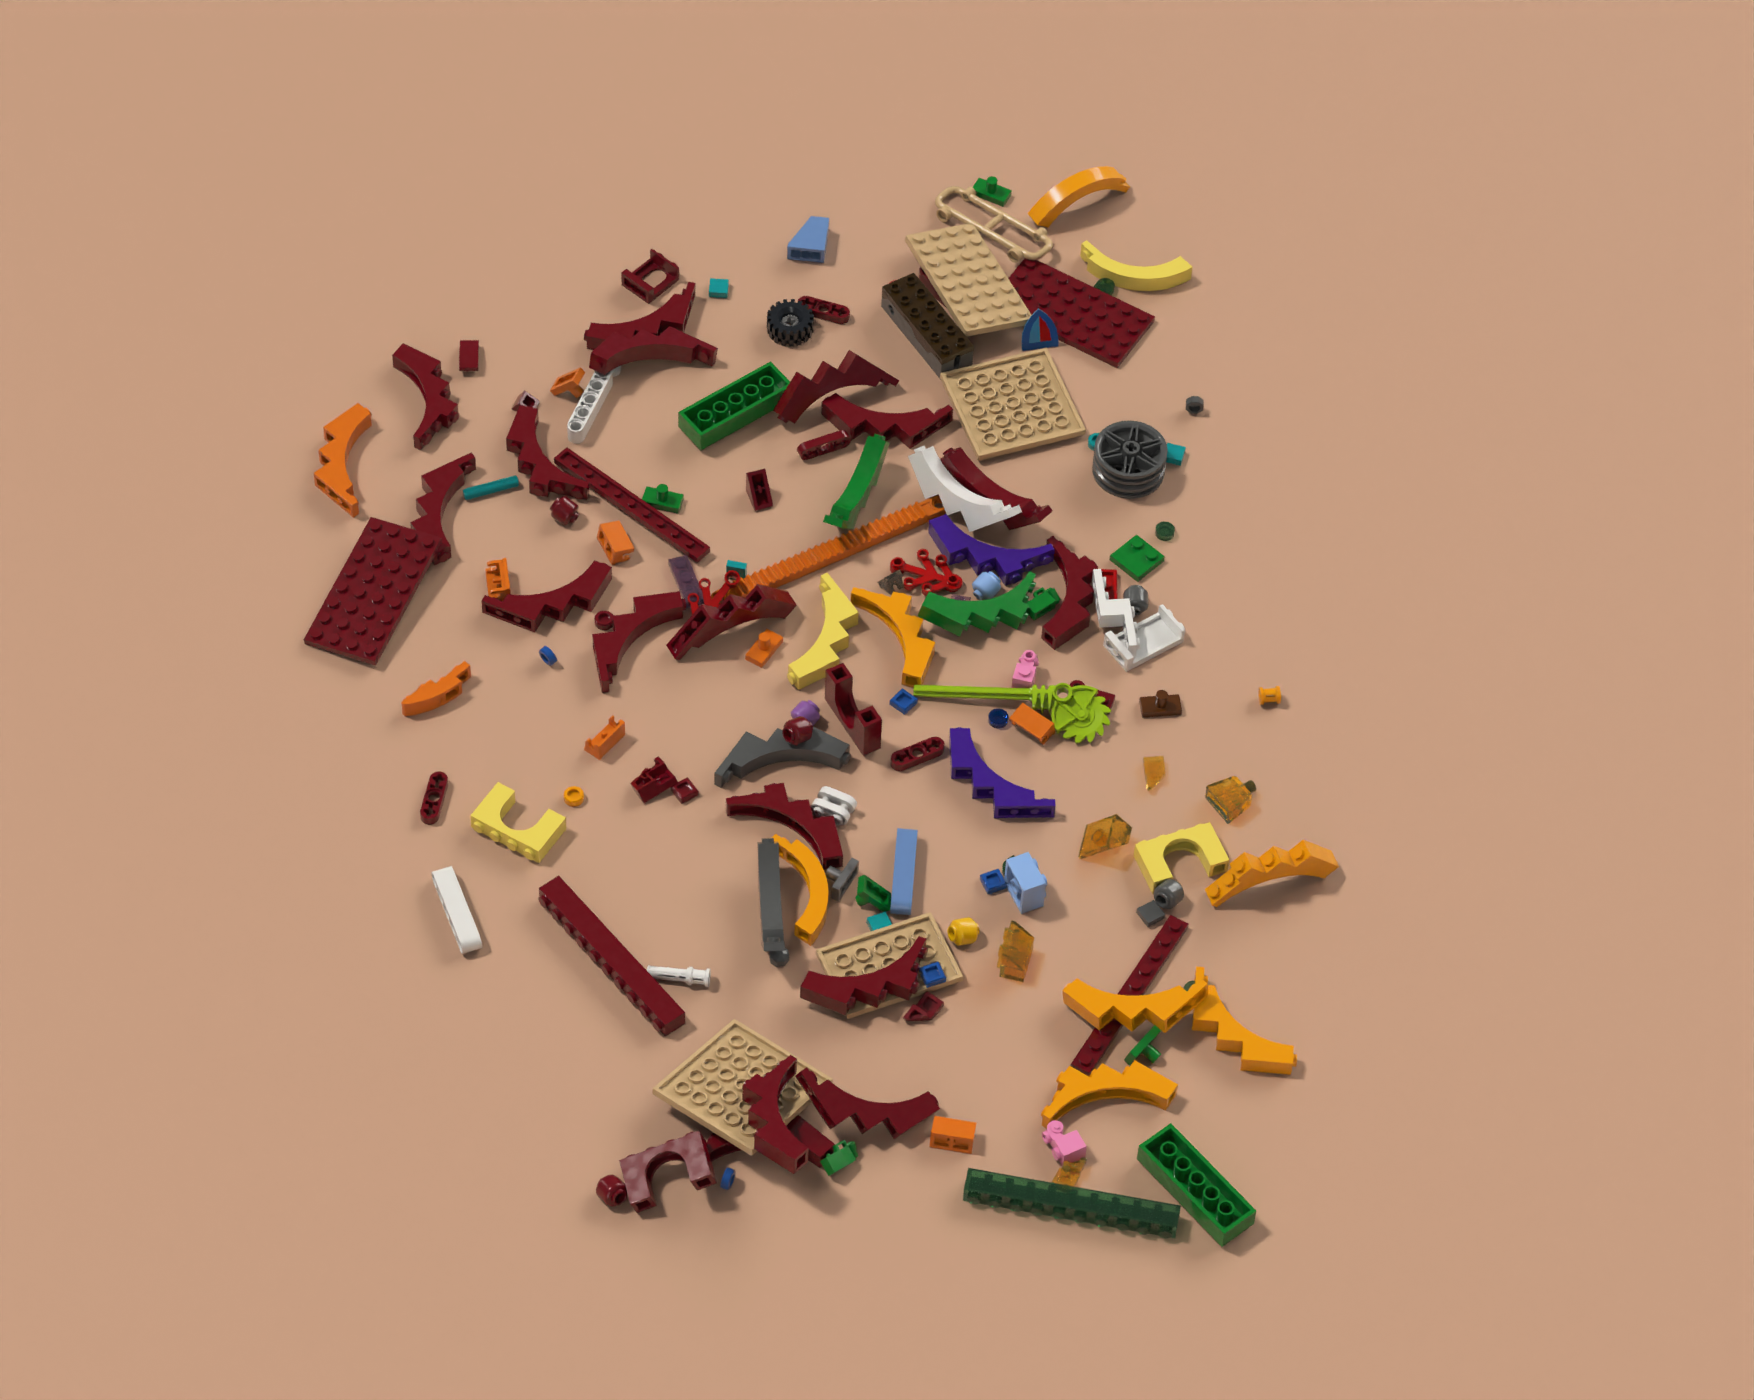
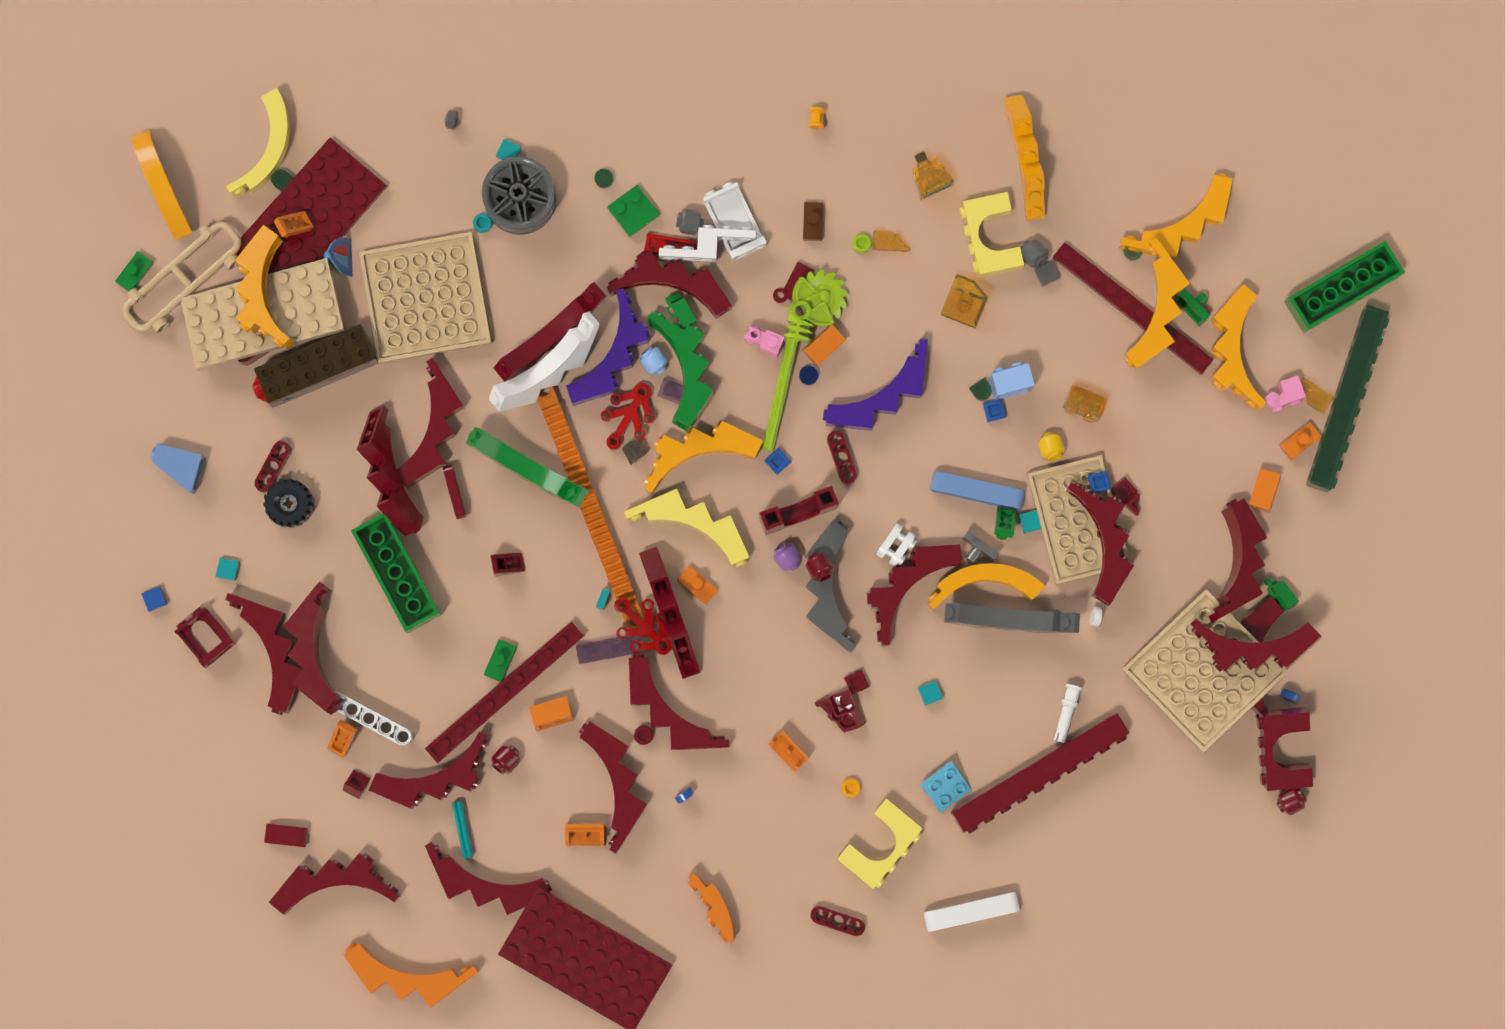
camera: 85 degrees left, 30 degrees up
(586, 874) = (945, 786): none -> medium azure hinge
(681, 239) = (154, 599): none -> blue tile
(682, 854) = (930, 693): none -> teal tile
(787, 990) = (1096, 616): none -> white tile
(991, 263) = (255, 263): none -> light orange arch
(1013, 1164) = (1300, 441): none -> orange tile
(1060, 288) = (293, 224): none -> orange tile
(1146, 748) = (861, 243): none -> lime tile

